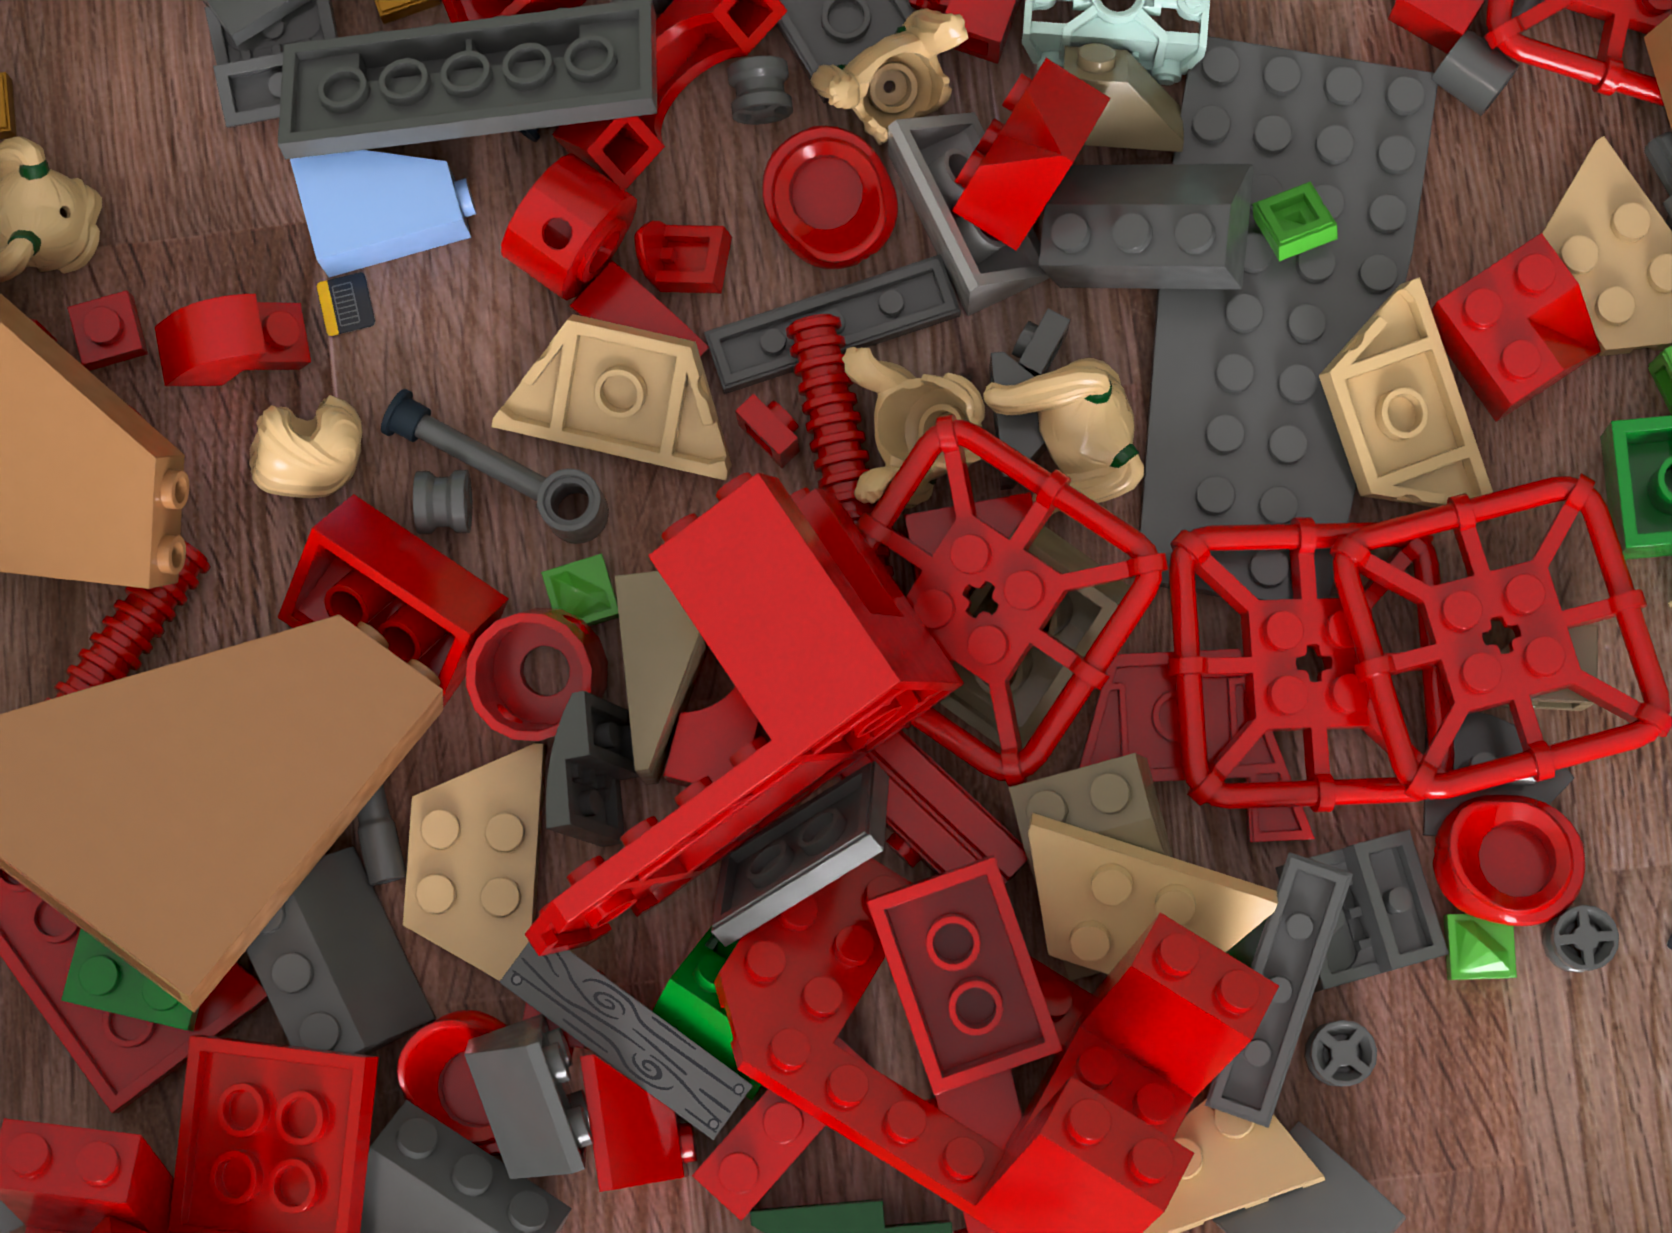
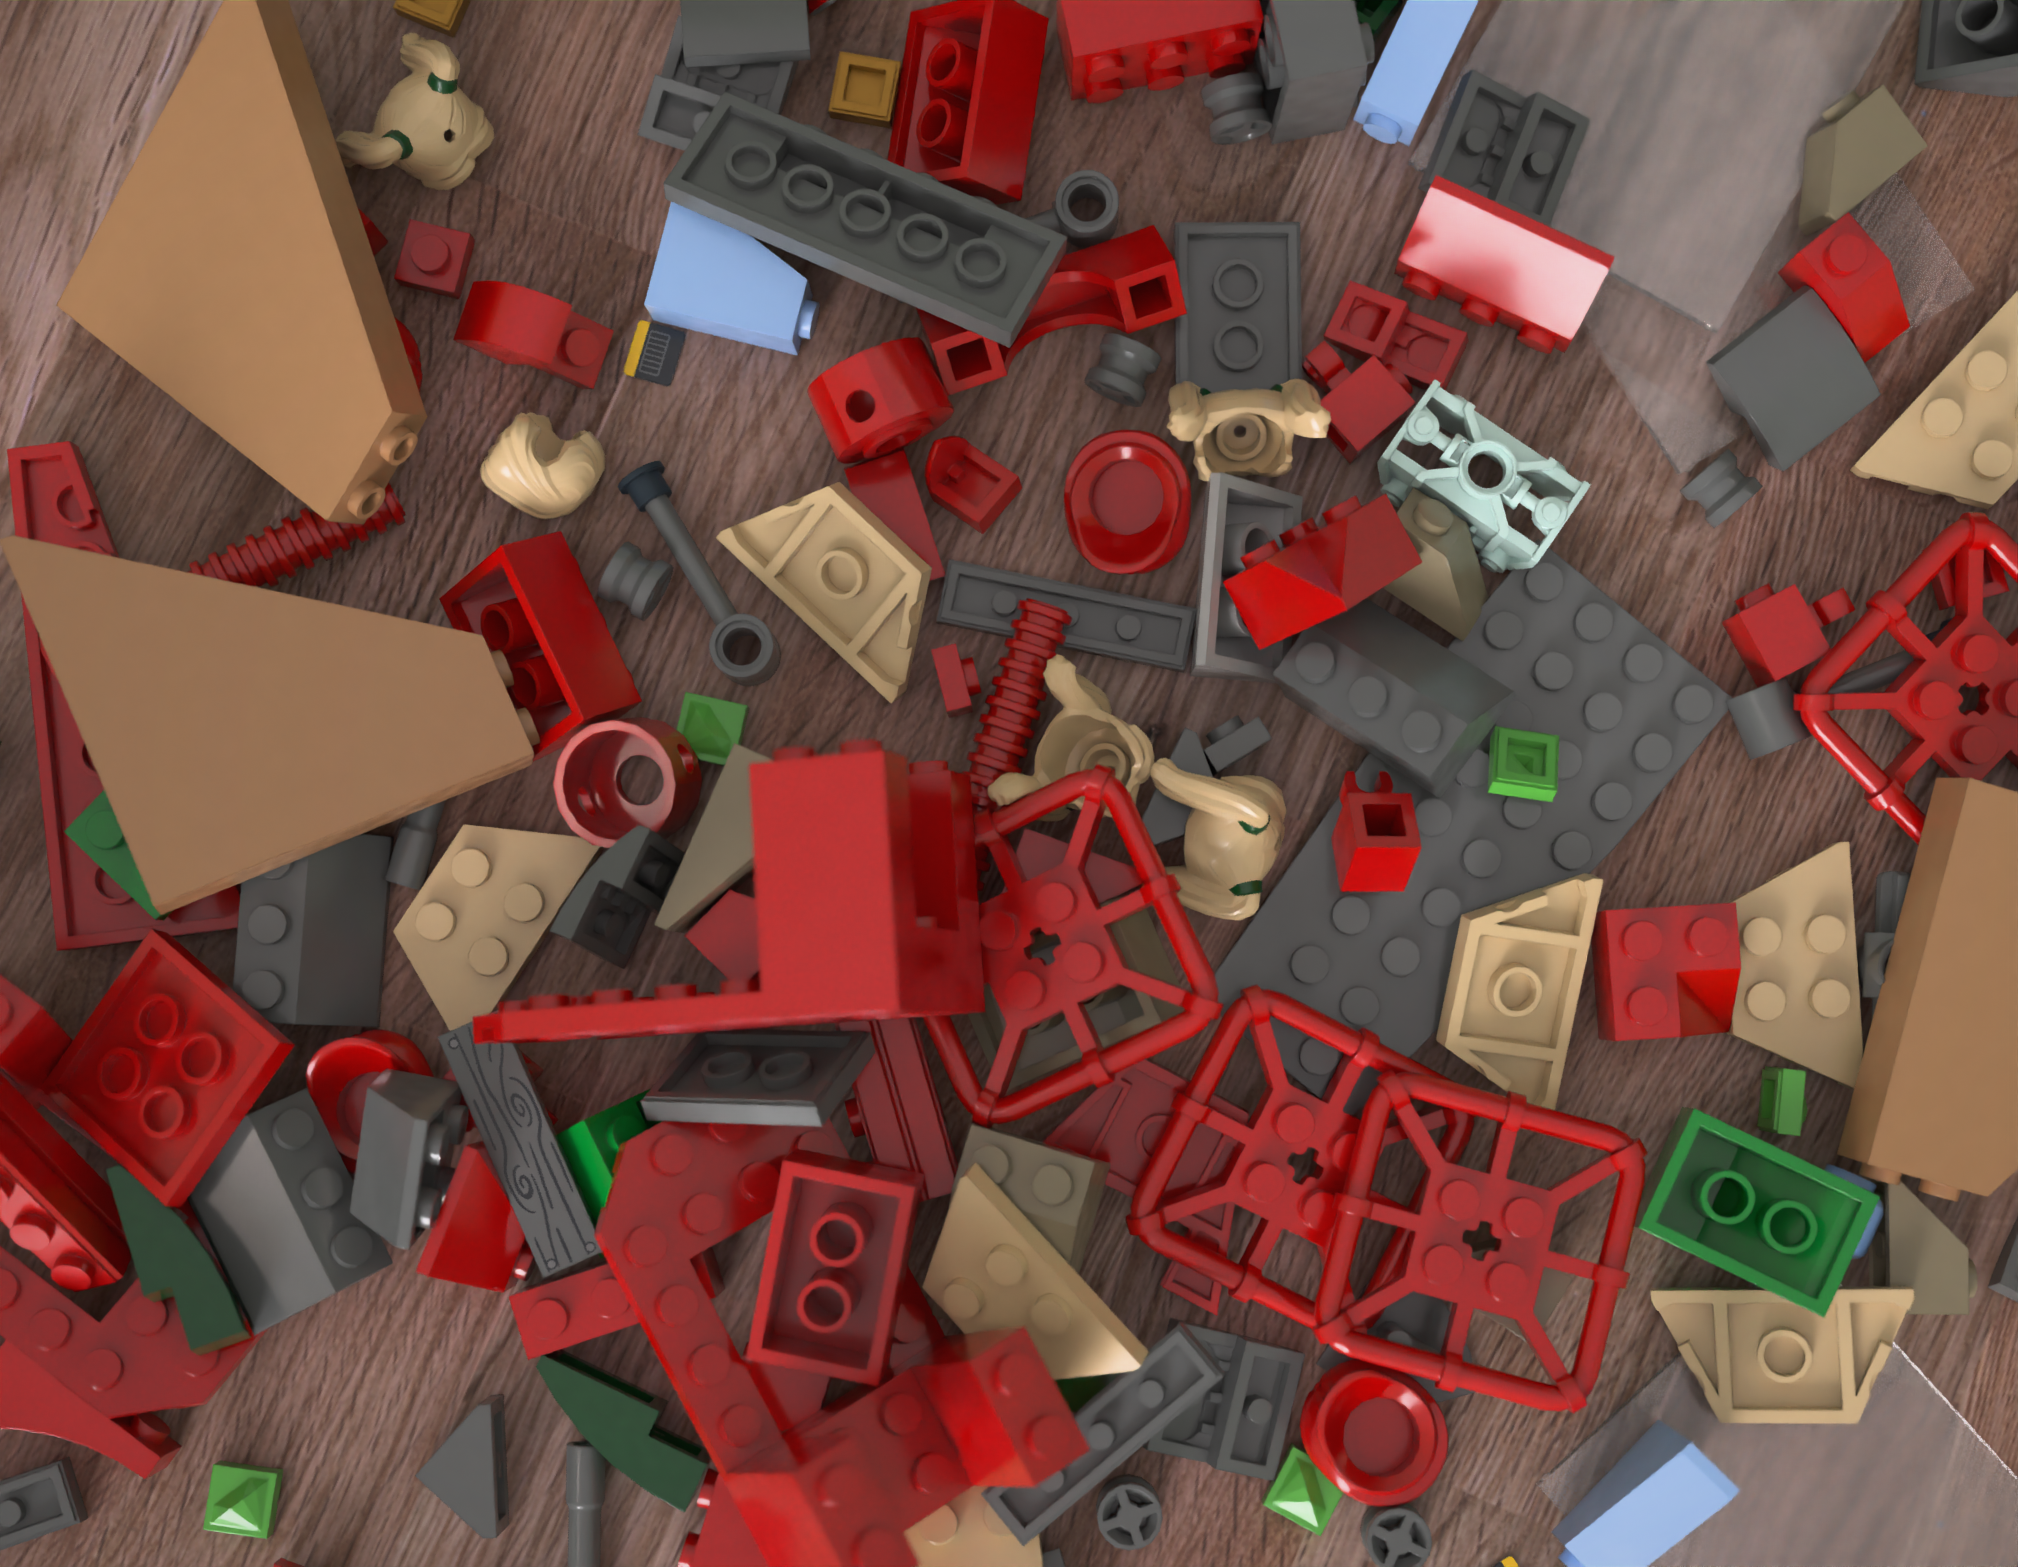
camera: 30 degrees right, 5 degrees up
(1207, 349) = (1375, 837): none -> red brick

